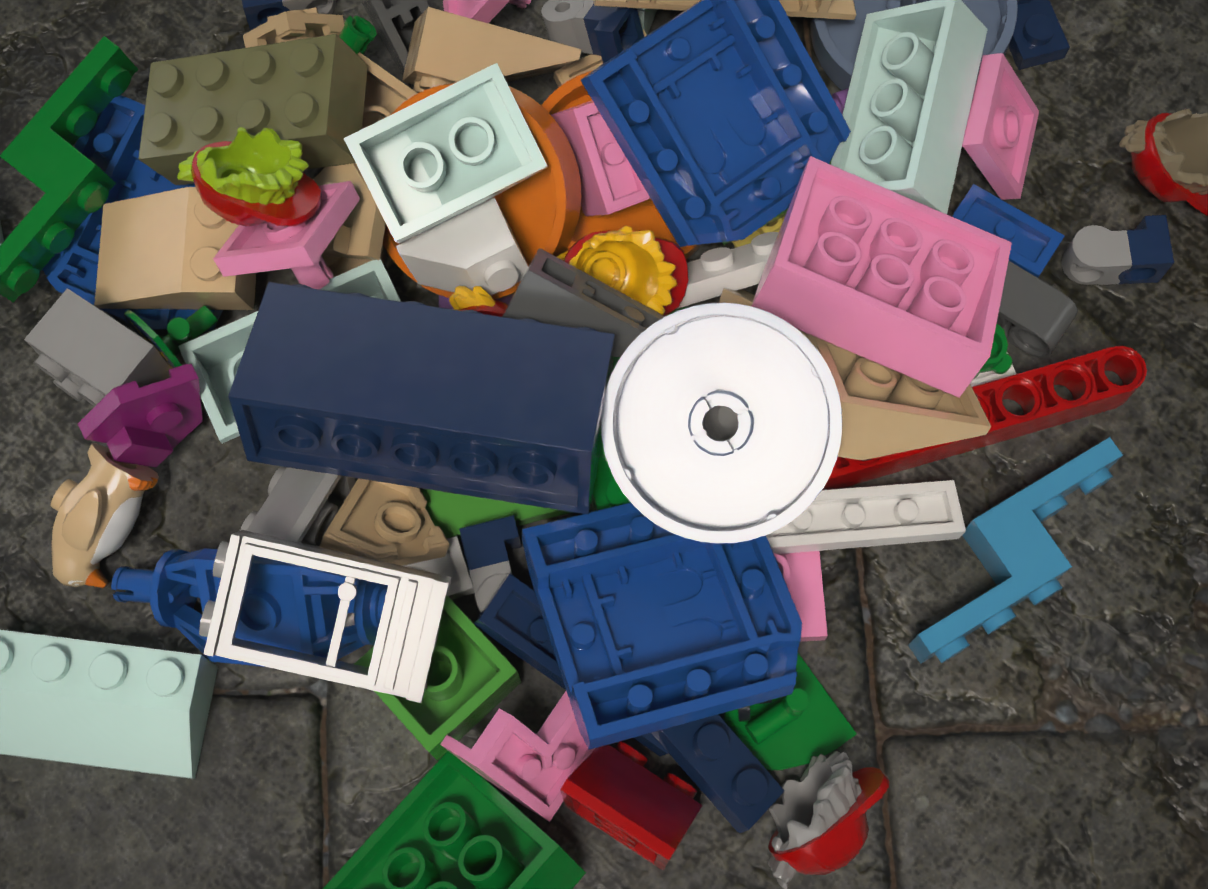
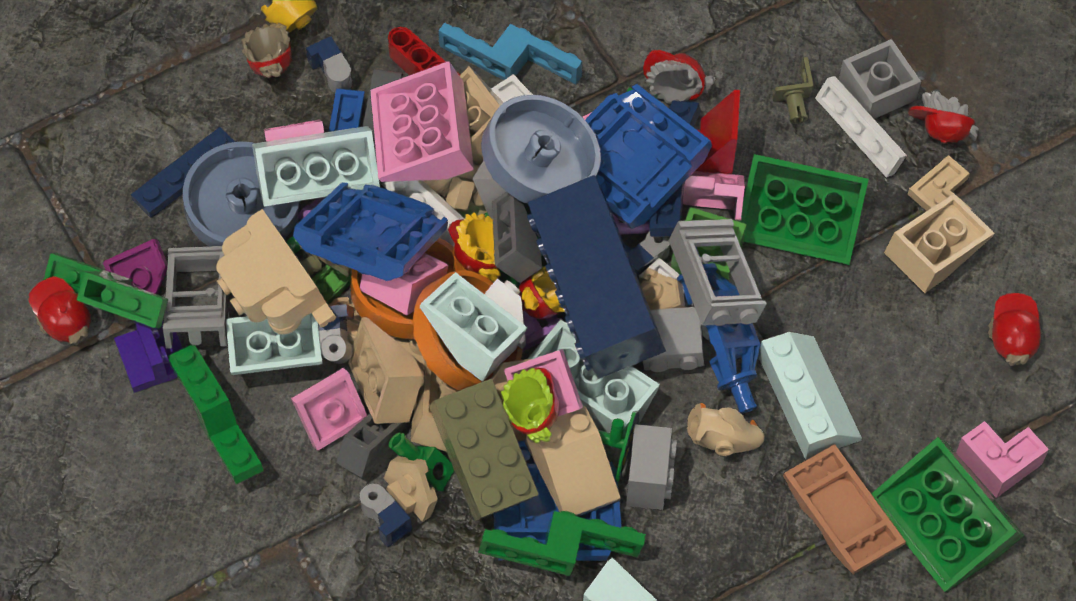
camera: 120 degrees left, 10 degrees down
(148, 420) = (661, 416): magenta plate -> none

